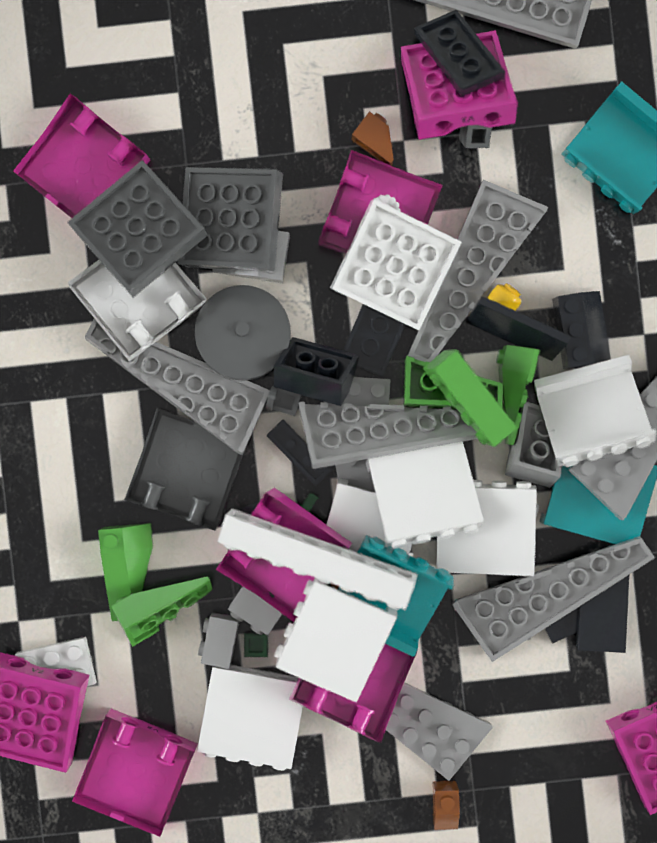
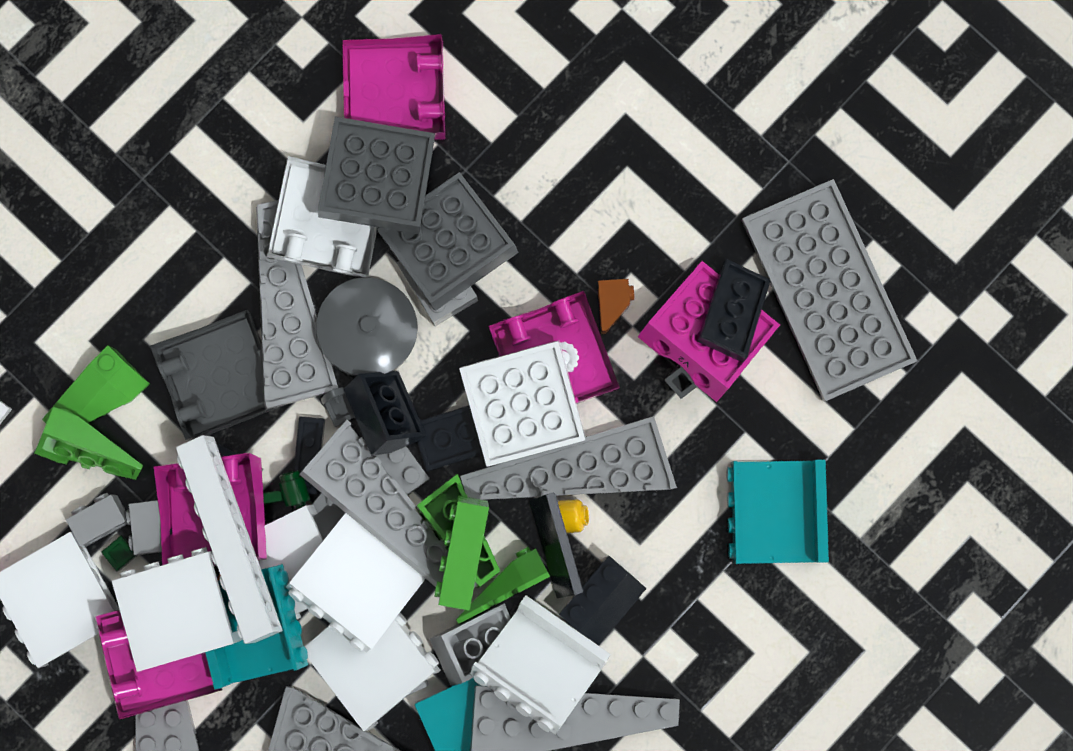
camera: 50 degrees right, 5 degrees down
(317, 482) = (294, 490): none -> dark green brick

